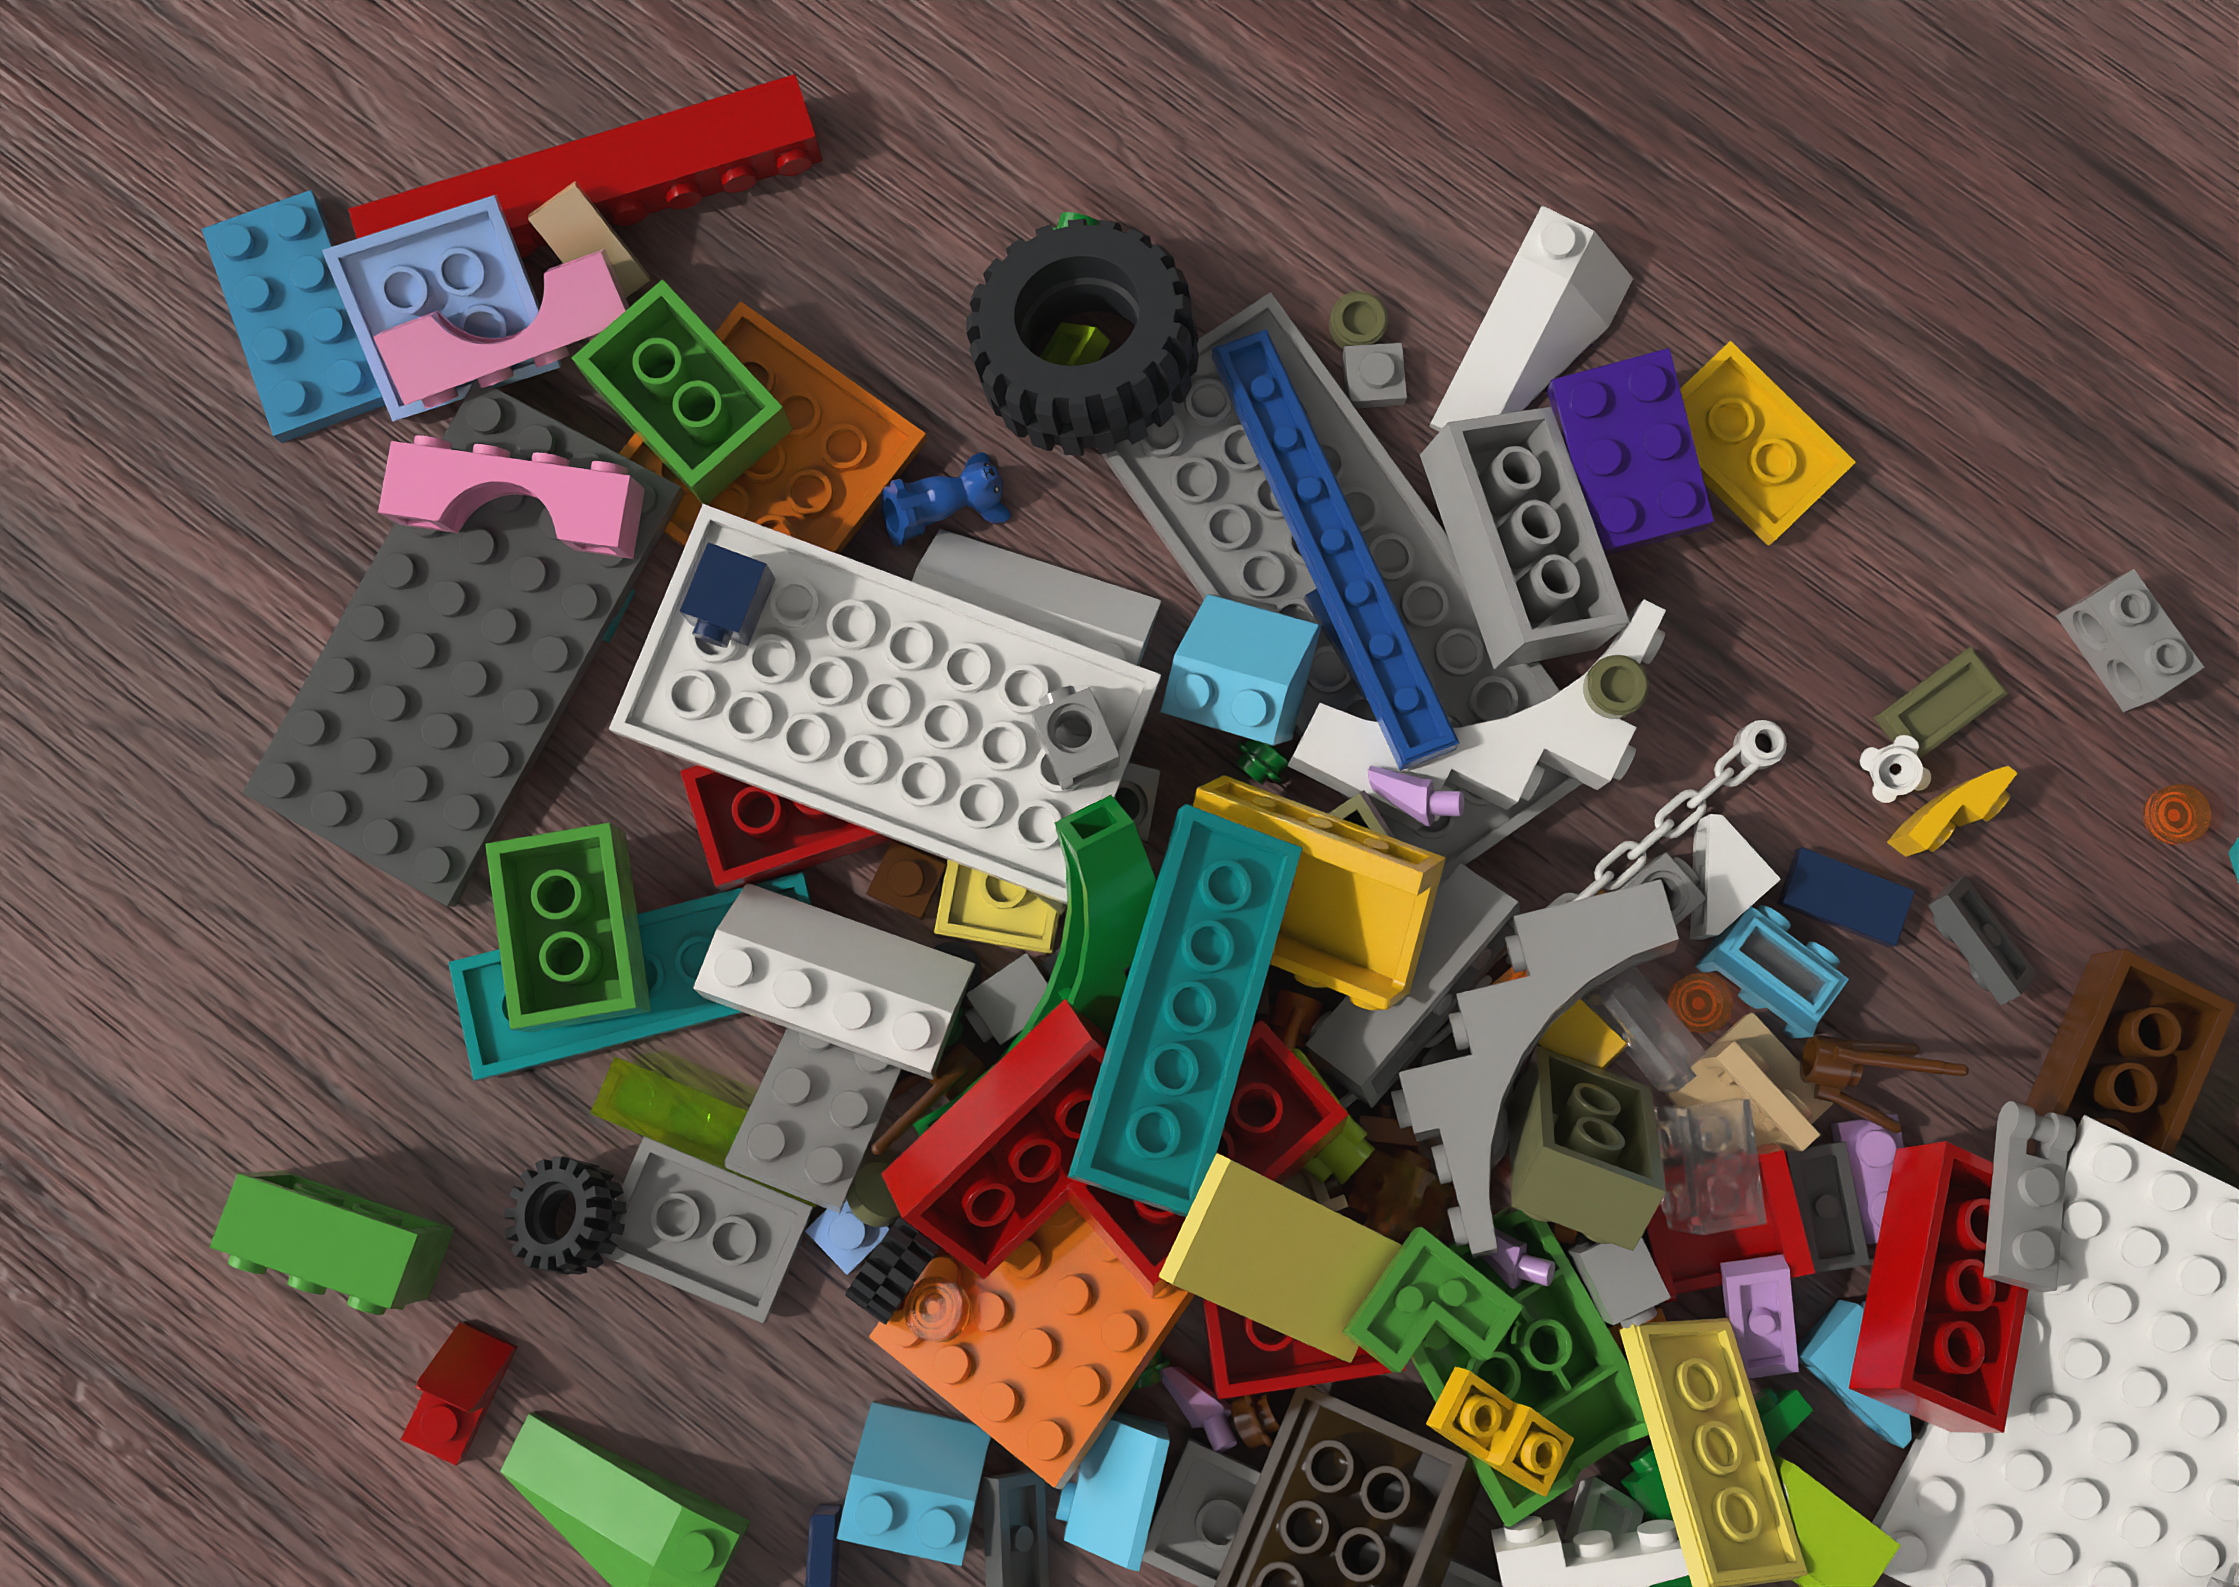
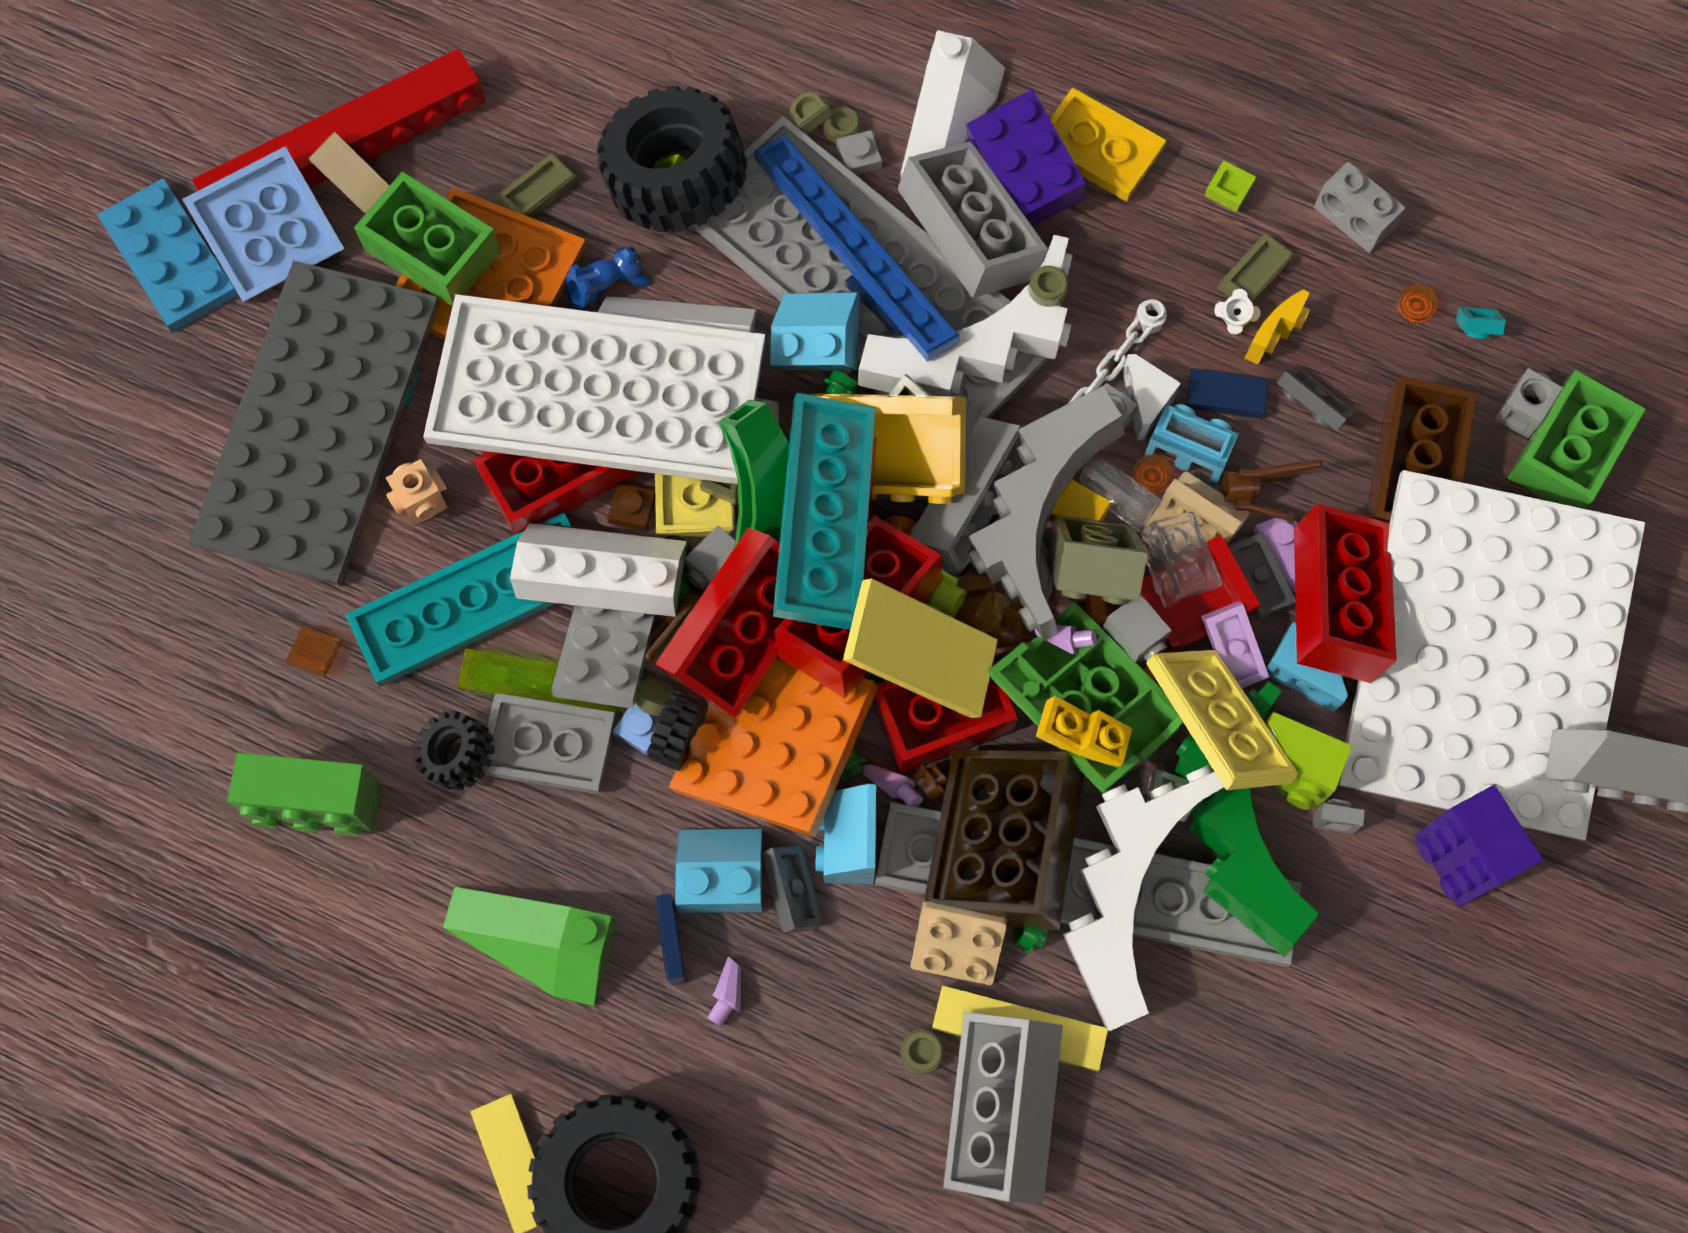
camera: 10 degrees left, 10 degrees down
(394, 1003) = (313, 652): none -> clear orange tile
(435, 355) = (267, 251): bright pink arch -> none
(442, 487) = (285, 321): bright pink arch -> none
(457, 1392) = (405, 883): red slope -> none
(567, 928) = (420, 567): bright green brick -> none
(609, 794) = (416, 492): none -> light nougat brick
(726, 596) = (483, 338): dark blue brick -> none
(871, 326) = (538, 187): none -> olive tile
(937, 1309) = (709, 750): clear orange tile -> none
(1078, 763) = (722, 390): light grey brick -> none
(1313, 291) = (809, 111): none -> olive tile
(1415, 795) = (940, 372): lavender bar -> none
(1426, 1288) = (1018, 655): bright green plate -> none
(1935, 558) = (1230, 186): none -> lime plate
(2027, 1198) = (1376, 525): light grey plate -> none

